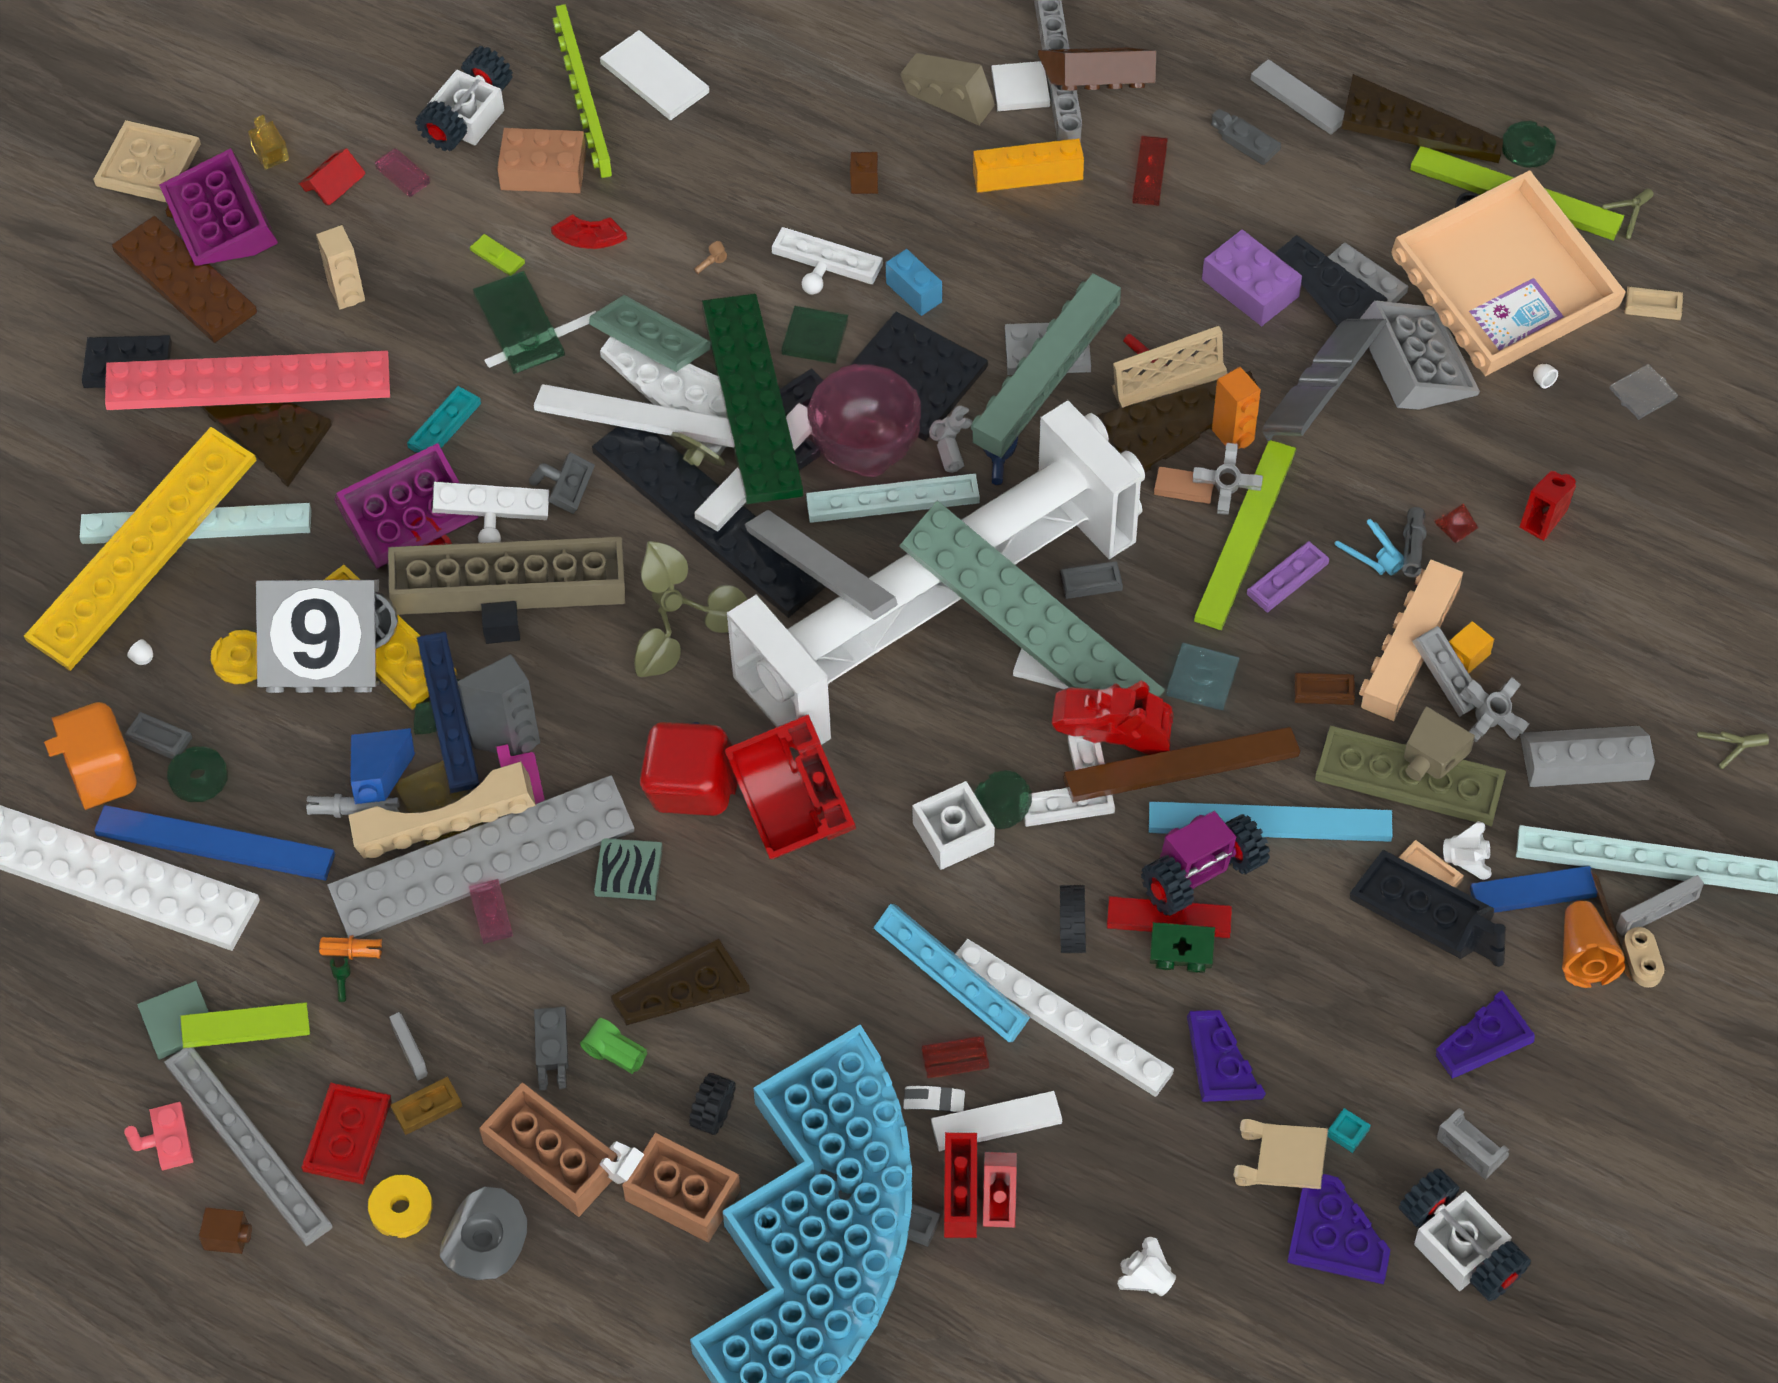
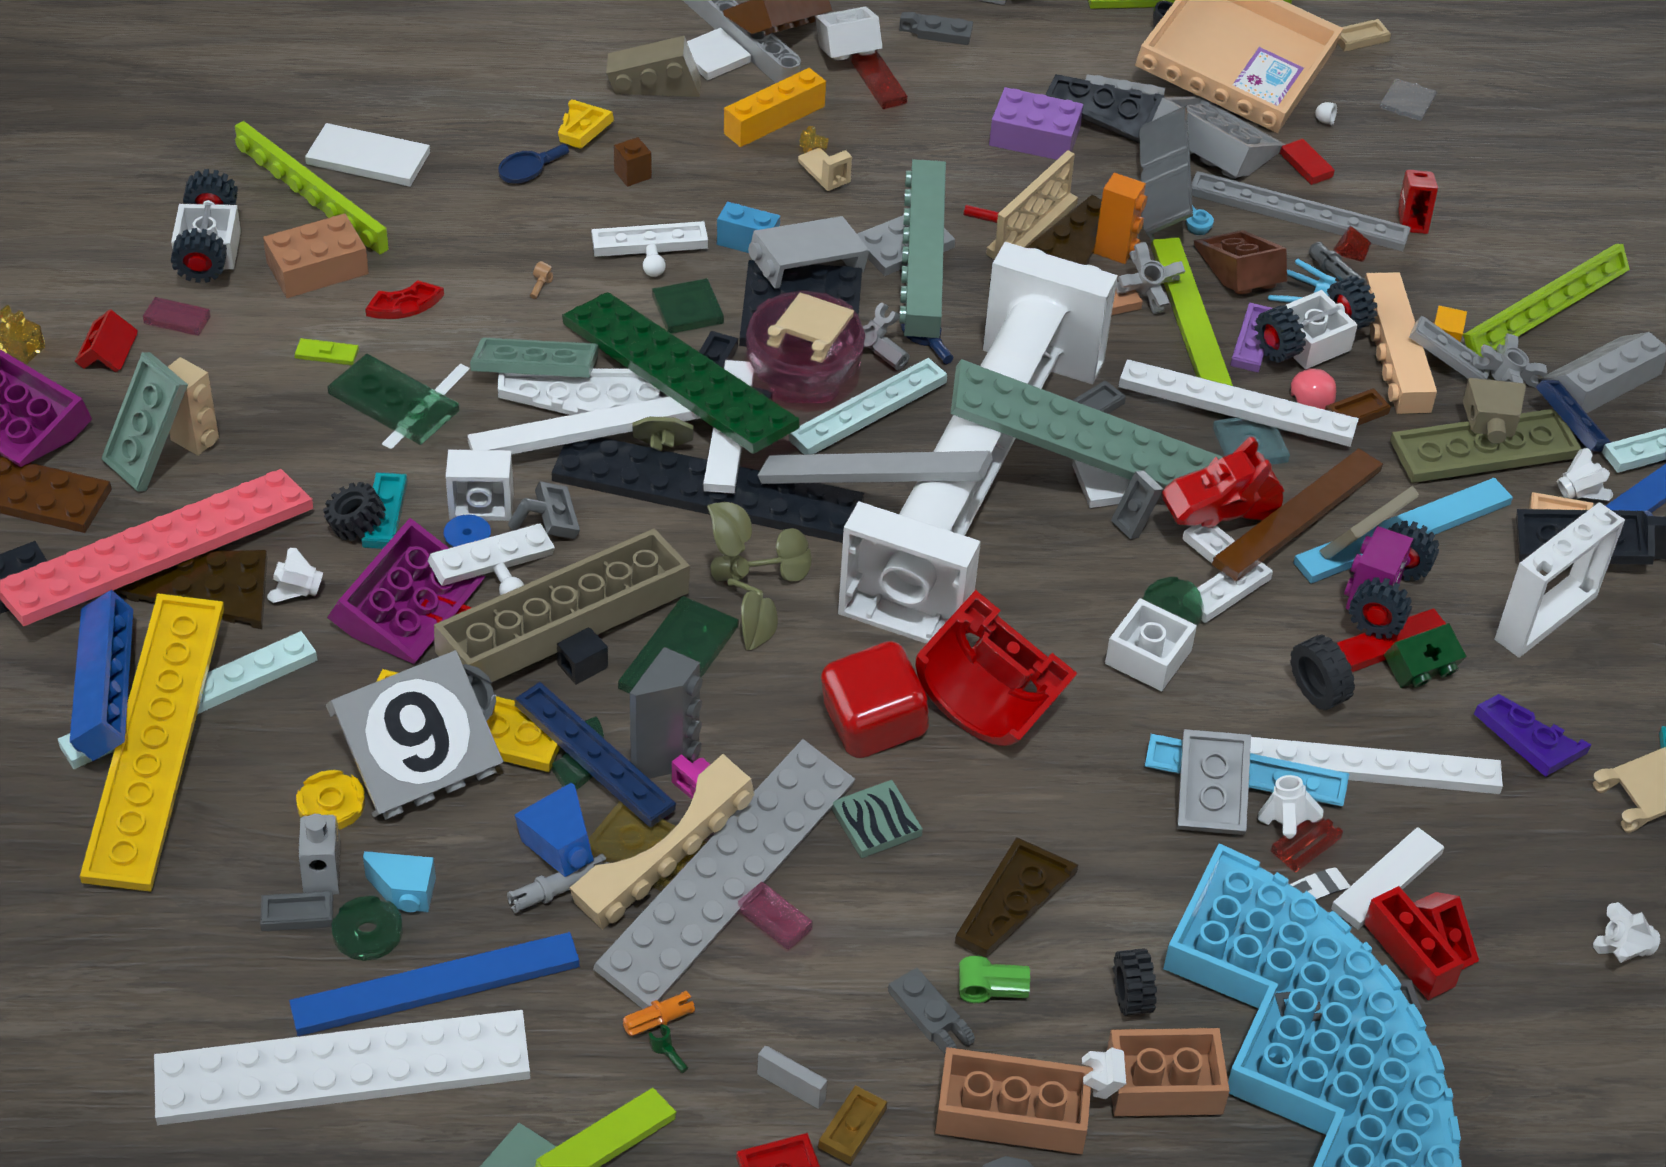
camera: 35 degrees left, 10 degrees down
(94, 753) = (253, 949): orange piece -> none
(134, 477) = (102, 676): none -> blue brick
(140, 652) = (222, 840): white hinge -> none
(195, 699) = (319, 841): none -> light grey torso
(244, 749) = (402, 879): none -> medium azure slope
(295, 268) = (144, 421): none -> sand green tile
(331, 454) = (294, 578): none -> white rock
(413, 415) = (354, 511): none -> black tyre
(491, 470) = (466, 529): none -> blue piece
(519, 434) = (480, 484): none -> white brick
(578, 654) = (688, 630): none -> clear green tile
(776, 138) = (528, 164): none -> dark blue piece
(851, 115) = (583, 123): none -> yellow wing
(870, 403) = (813, 321): none -> tan flag
(909, 970) = (1214, 782): none -> light grey plate
(946, 321) = (806, 245): none -> light grey panel
(955, 1022) = (1290, 805): none -> white rock
(1029, 245) = (827, 170): none -> tan bracket
(1039, 693) = (1137, 504): none -> dark grey plate
(1040, 213) = (809, 140): none -> clear yellow plate
(1145, 113) = (849, 32): none -> white brick
(1214, 636) = (1238, 402): none -> white plate
(1222, 803) = (1369, 523): none -> dark tan tile
(1298, 652) = (1314, 388): none -> coral hair
(1330, 437) = (1200, 222): none -> medium azure plate
(1335, 495) = (1244, 260): none -> copper slope
(1339, 590) = (1317, 324): none -> brick
(1345, 954) = (1534, 615): none -> white window
(1436, 467) = (1298, 210): none -> light grey tile
(1485, 418) = (1307, 161): none -> red tile
(1513, 783) = (1573, 414): none -> dark blue tile
(1592, 660) = (1549, 299): none -> lime tile

